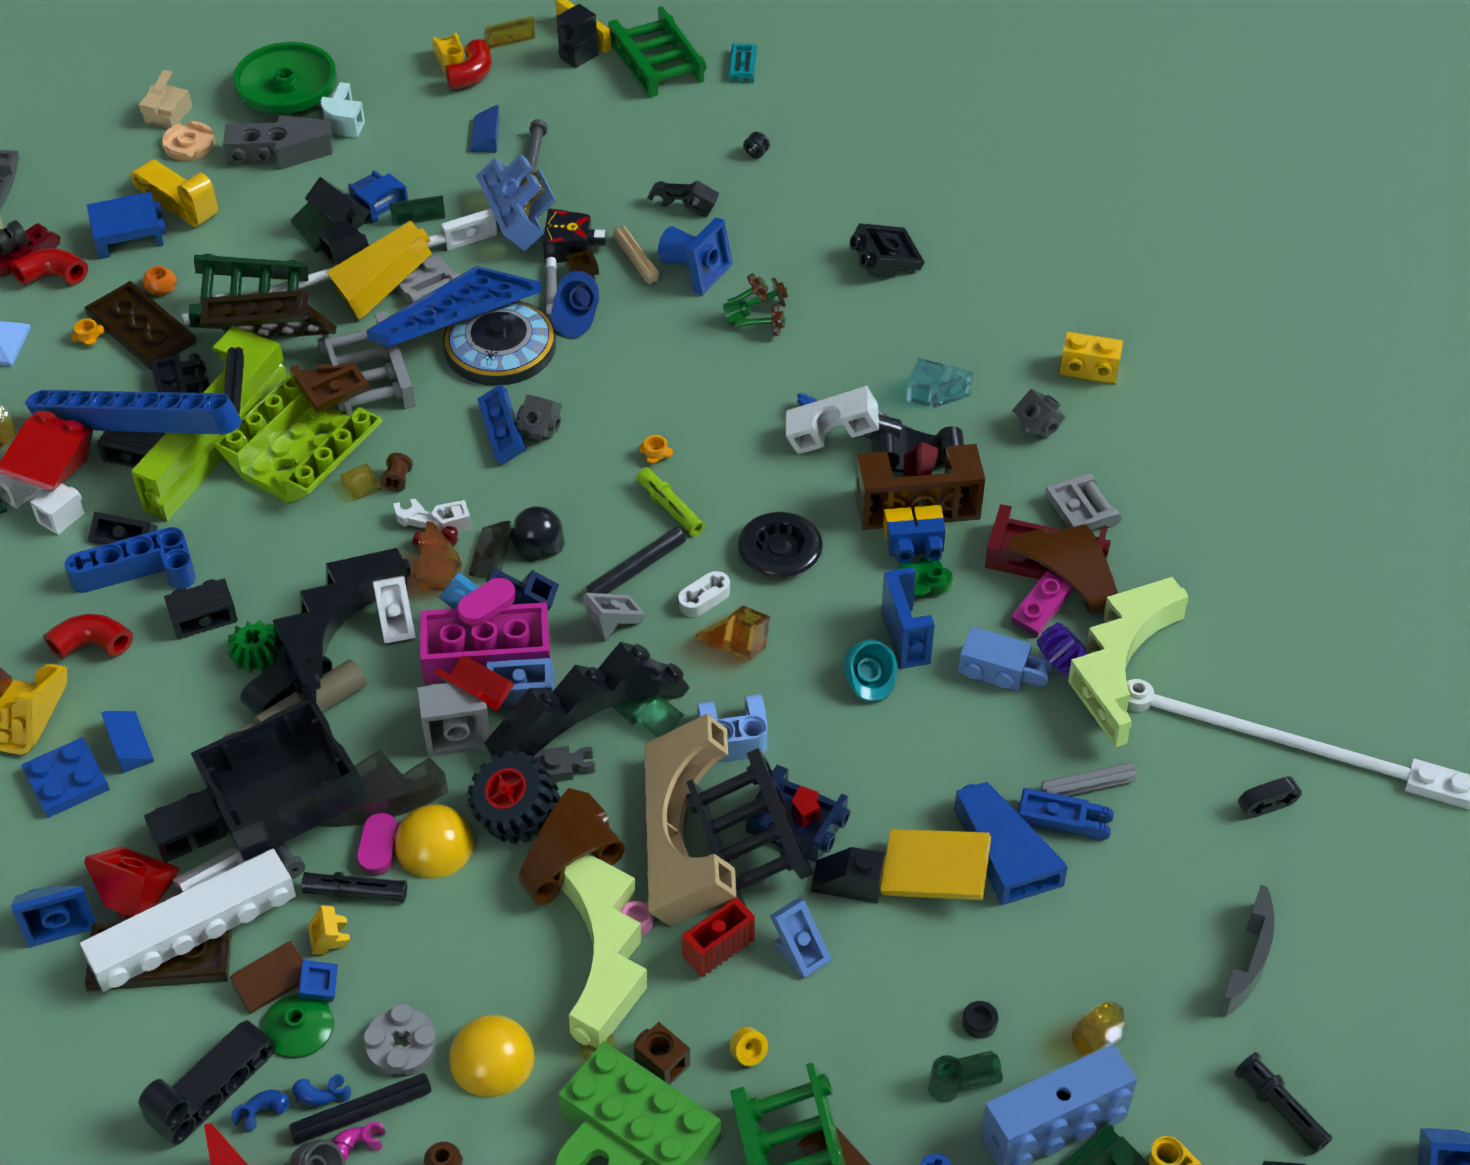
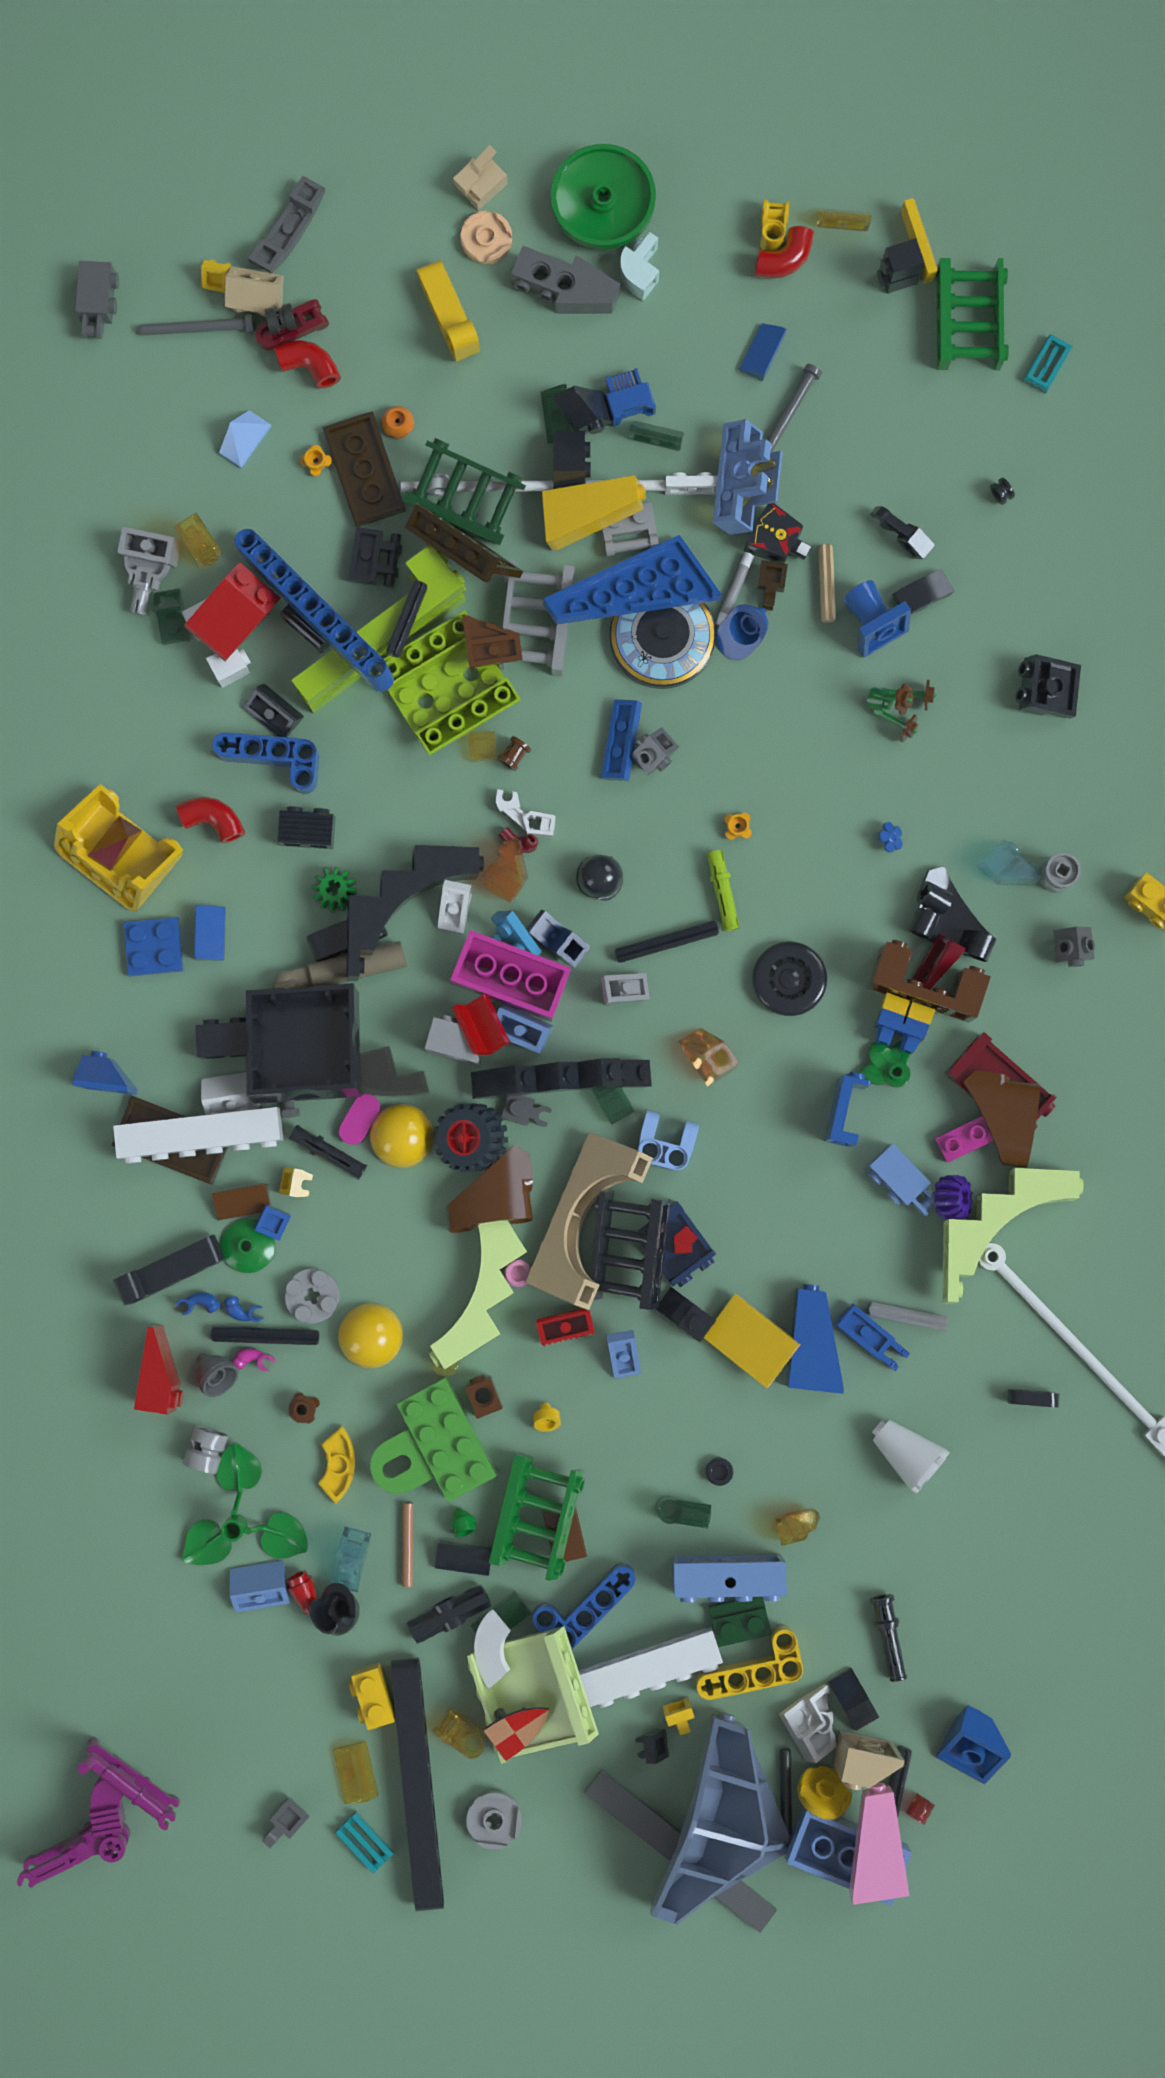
camera: 25 degrees right, 35 degrees up
(125, 220) = (391, 334): blue panel -> none
(129, 879) = (170, 1069): red slope -> none
(486, 601) = (522, 949): dark pink tile -> none
(491, 549) = (557, 872): clear smoke slope -> none
(706, 596) = (707, 1005): white beam -> none
(738, 225) = (924, 591): none -> black slope
(810, 423) = (874, 866): white arch -> none
(871, 670) = (796, 1140): teal hat -> none
(989, 366) = (1060, 872): none -> light grey wheel
(1075, 508) = (1048, 1053): light grey plate -> none
(1177, 899) = (909, 1453): none -> white cone
(1242, 983) = (963, 1492): dark grey slope -> none

